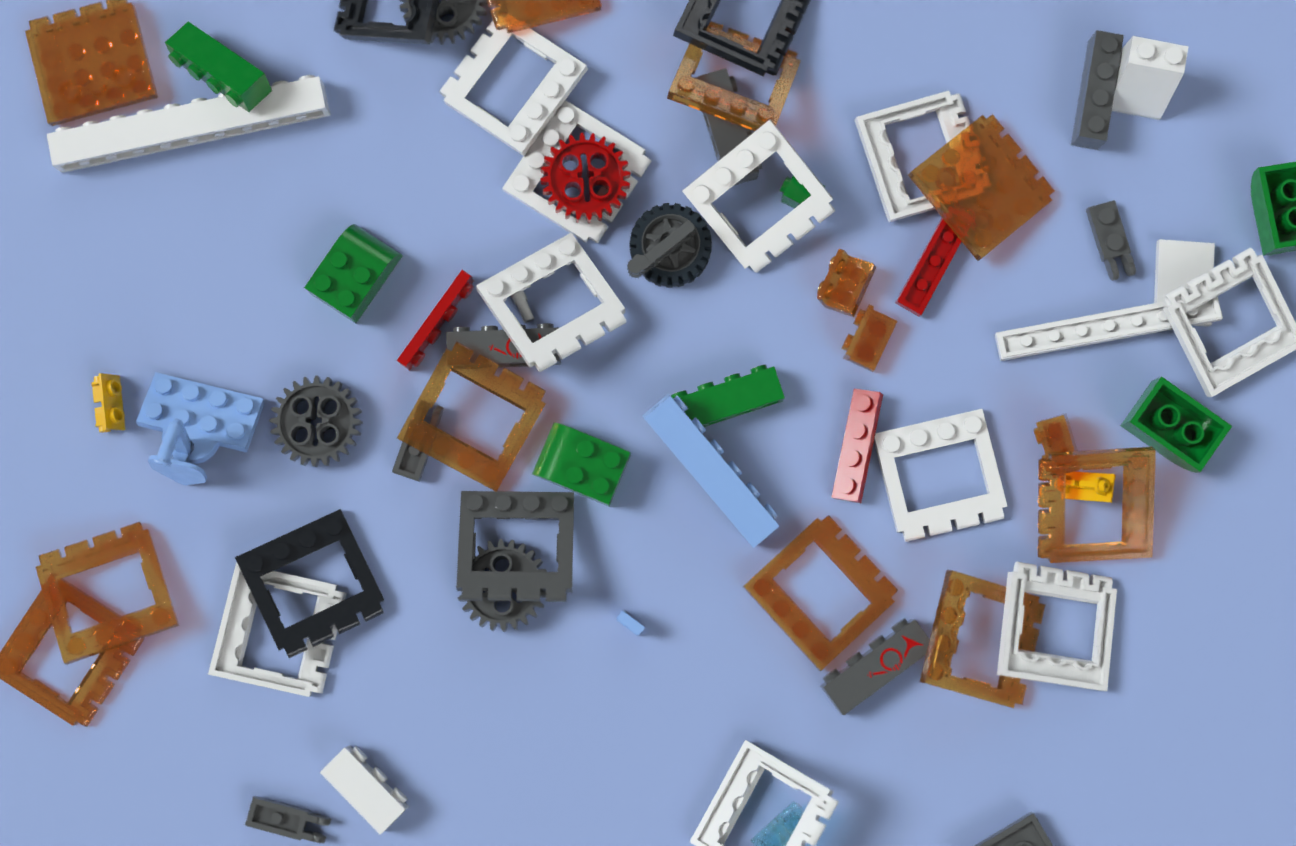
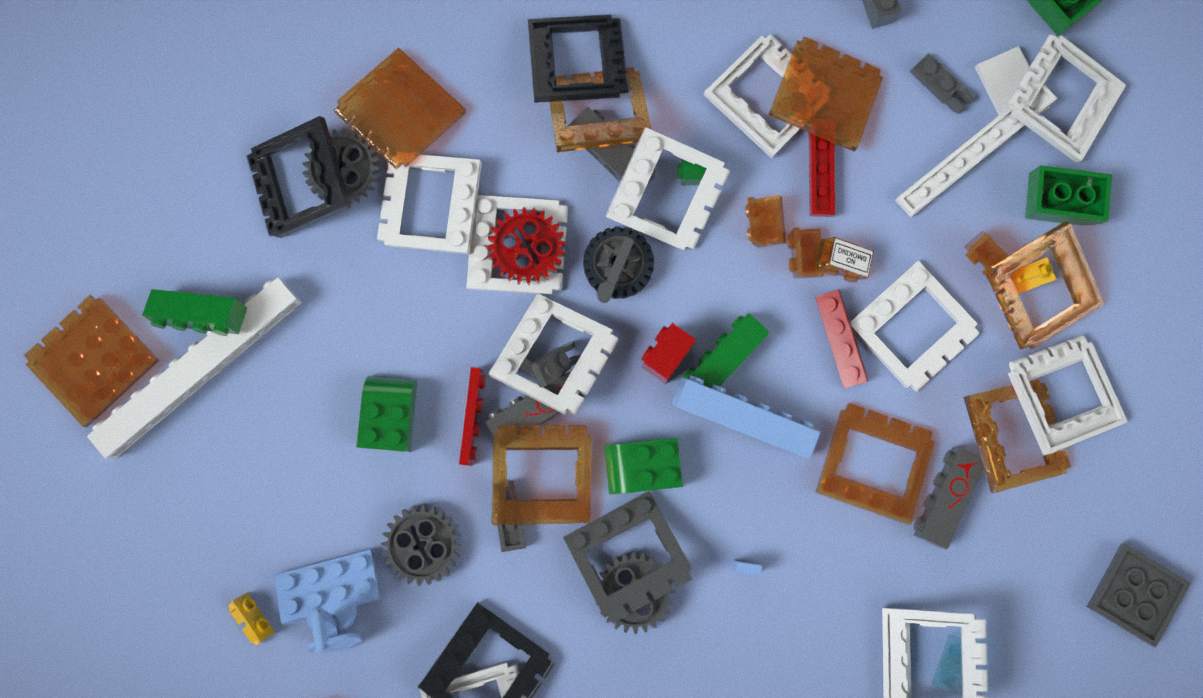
camera: 30 degrees left, 0 degrees up
(545, 311) = (554, 364): none -> dark grey hinge
(670, 359) = (668, 352): none -> red piece
(904, 365) = (844, 259): none -> brick

